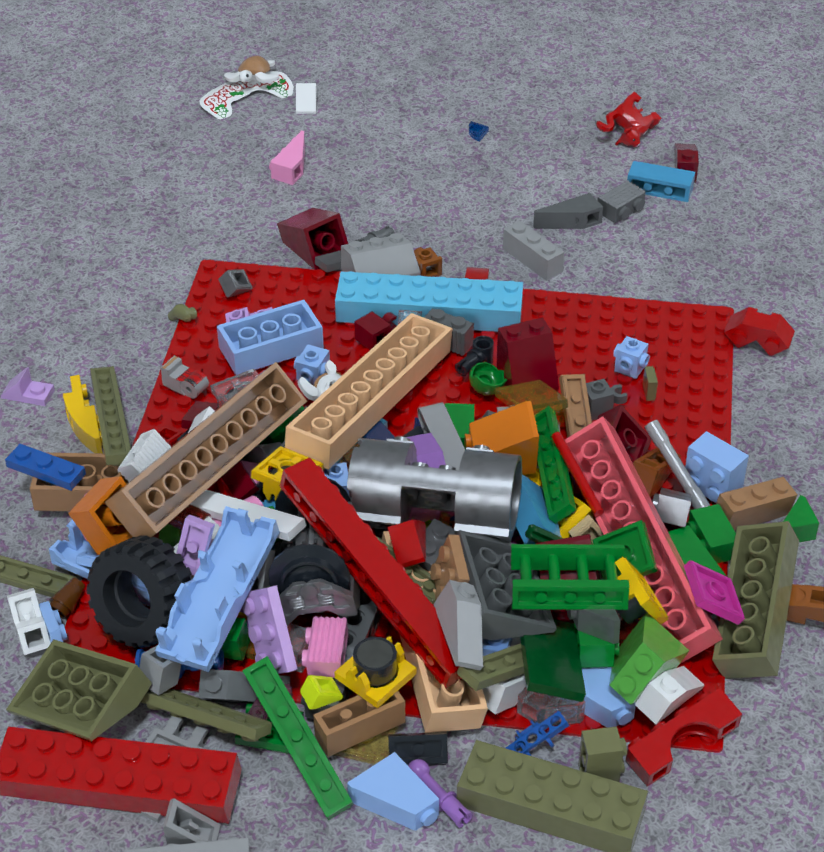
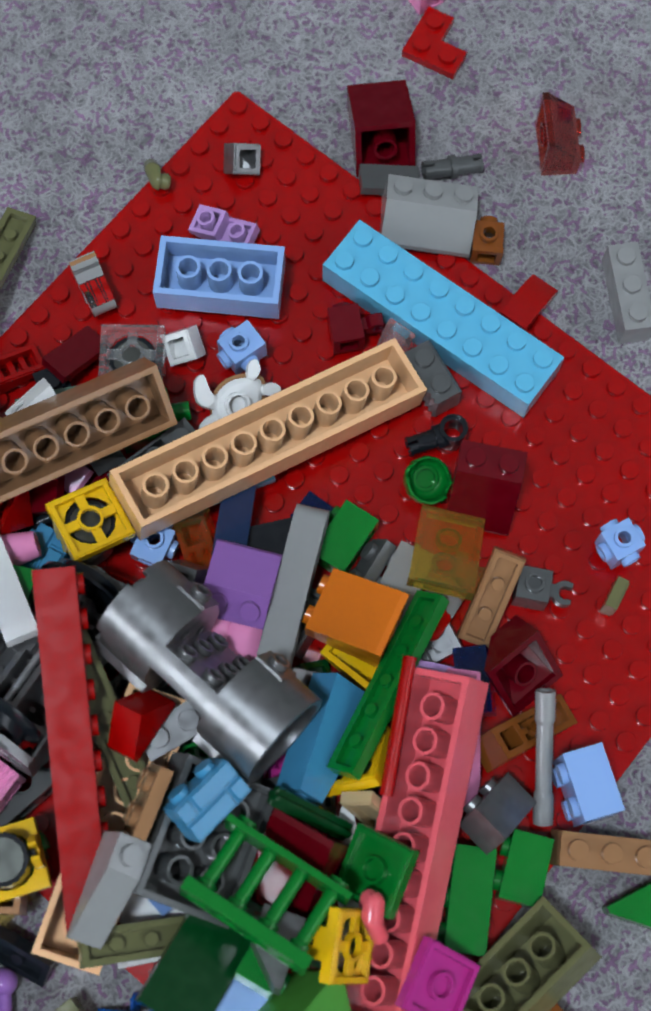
camera: 30 degrees right, 30 degrees up
(310, 195) = (428, 47): none -> red plate
(428, 199) = (558, 137): none -> clear red slope
(489, 544) = (206, 798): none -> dark azure brick
(645, 568) = (373, 915): none -> coral arm

